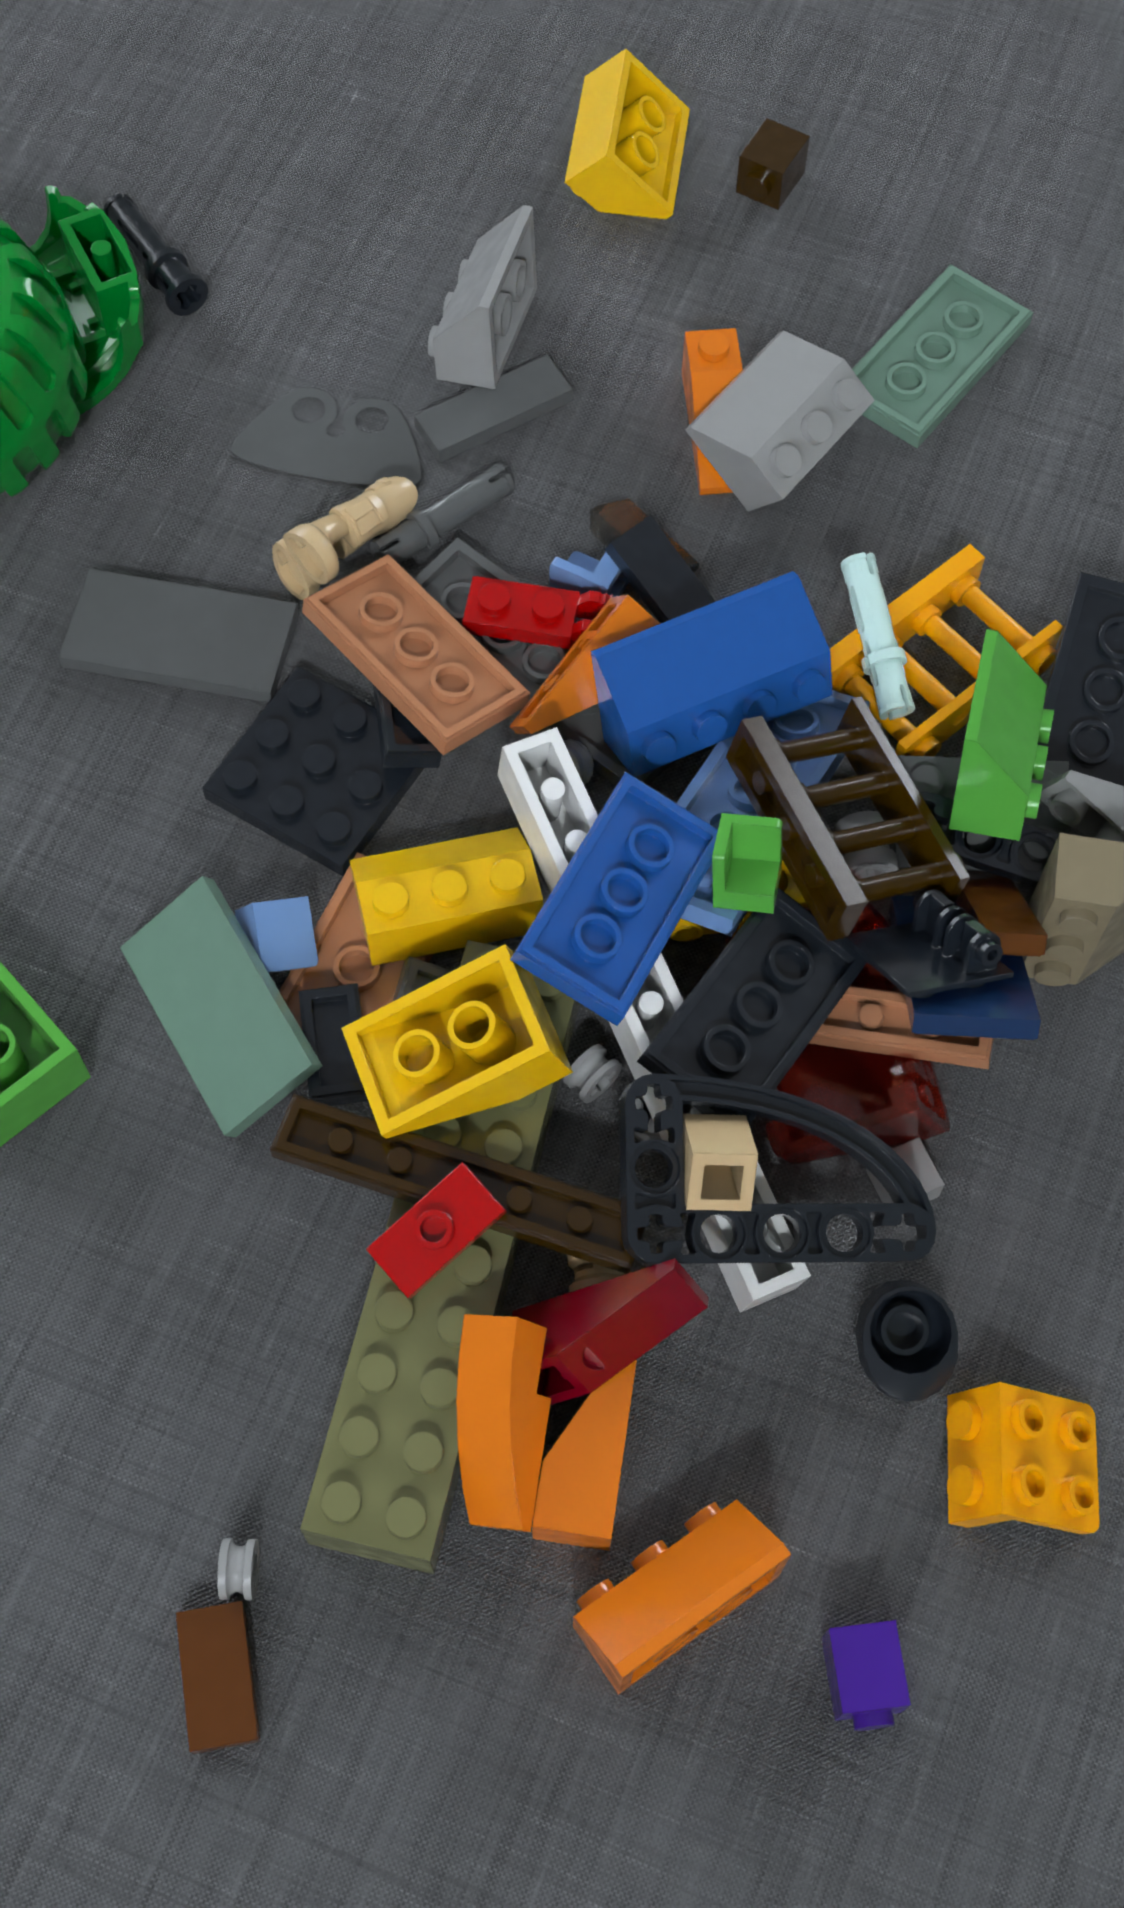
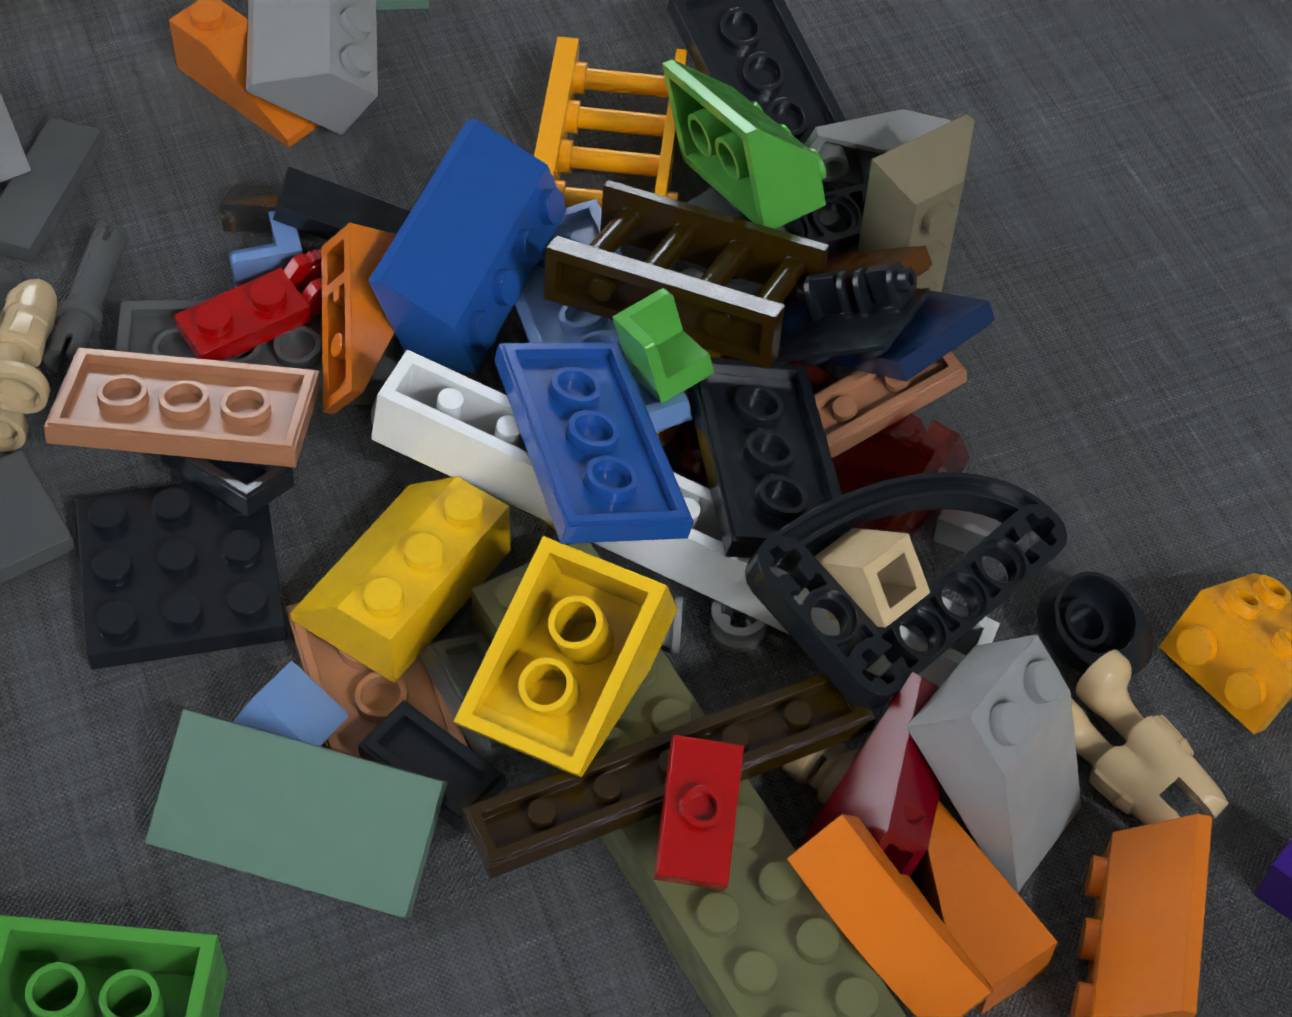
camera: 45 degrees left, 10 degrees down
(702, 1375) = (1005, 751): none -> light grey slope
(828, 1472) = (1151, 757): none -> tan piece
(882, 655) = (580, 153): light aqua pin -> none

